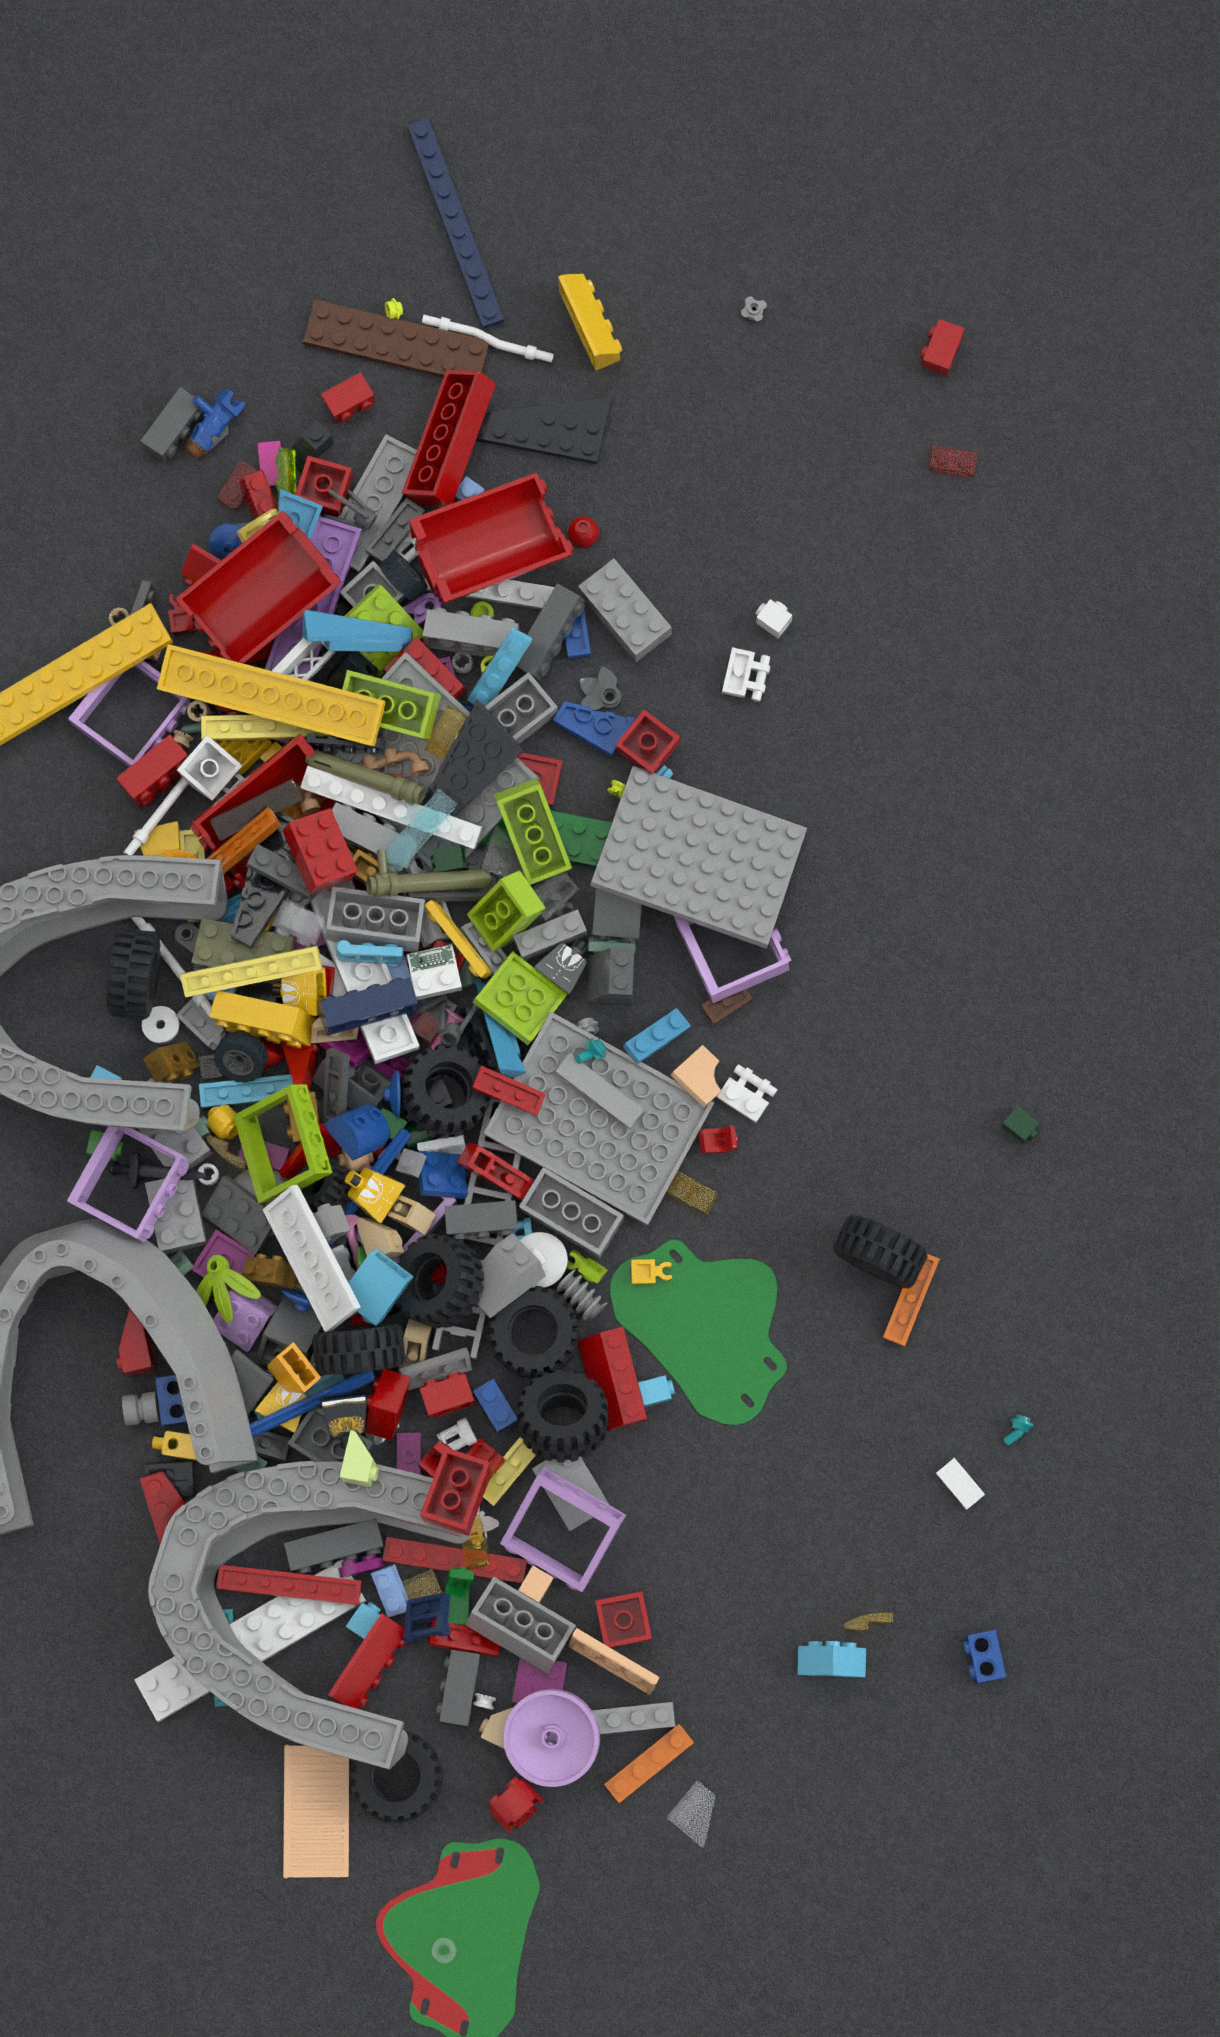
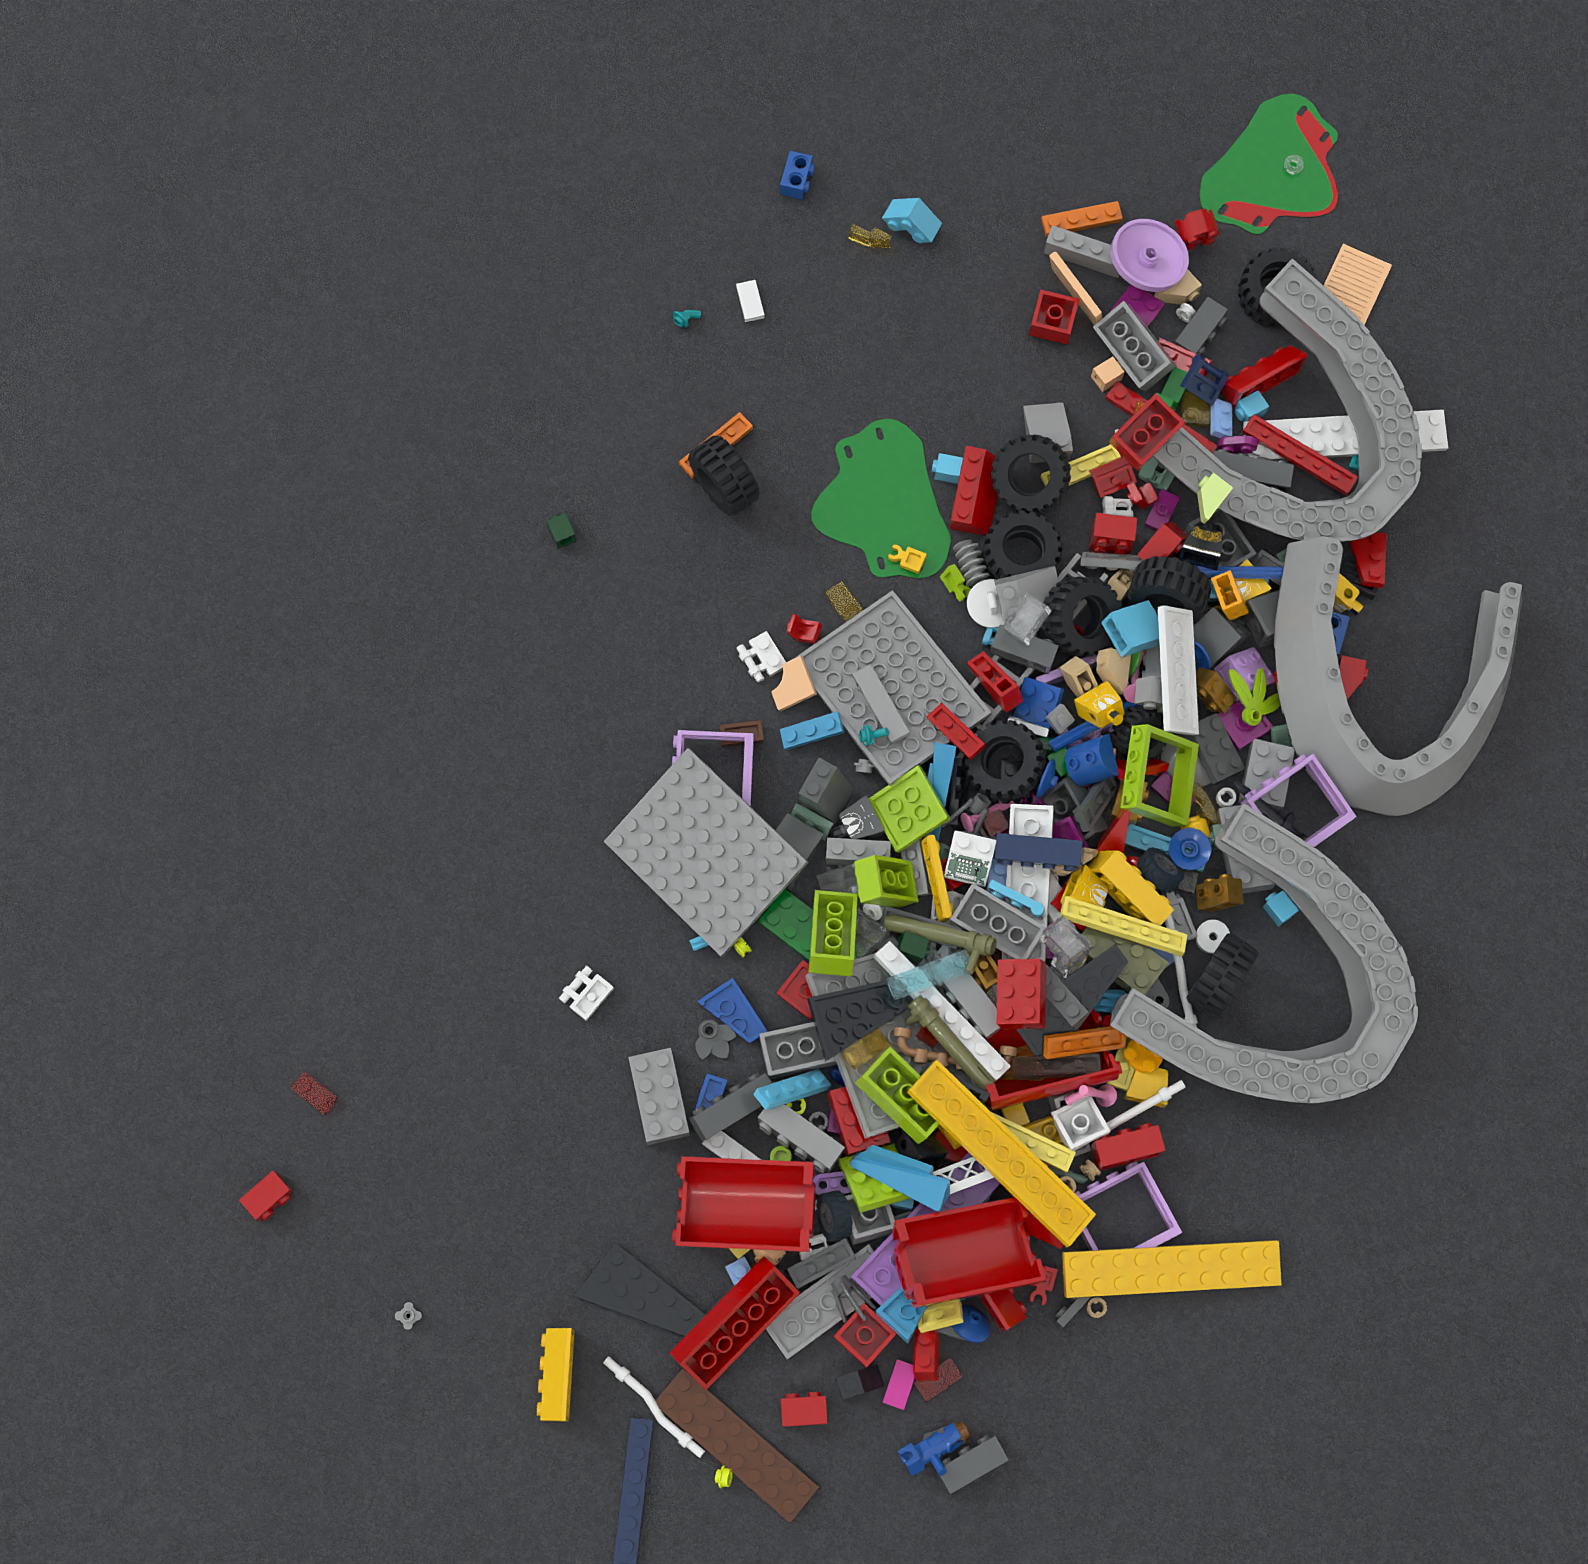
camera: 160 degrees left, 5 degrees down
(141, 1408) = (1359, 639): light grey wheel -> none
(215, 1084) = (1197, 842): none -> blue dish
(217, 793) = (1105, 1095): none -> bright pink piece
(286, 470) = (894, 1359): clear neon green plate -> none
(491, 1237) = (1026, 619): none -> clear brick
(495, 1406) = (1077, 513): blue brick -> none
(571, 1212) = (948, 624): light grey brick -> none
(578, 1498) = (1052, 409): lavender window -> none
(583, 532) = (659, 1187): red brick -> none
(647, 743) = (698, 970): red brick -> none
(694, 1813) = (1065, 172): clear wing -> none
(773, 617) = (537, 1029): white brick -> none

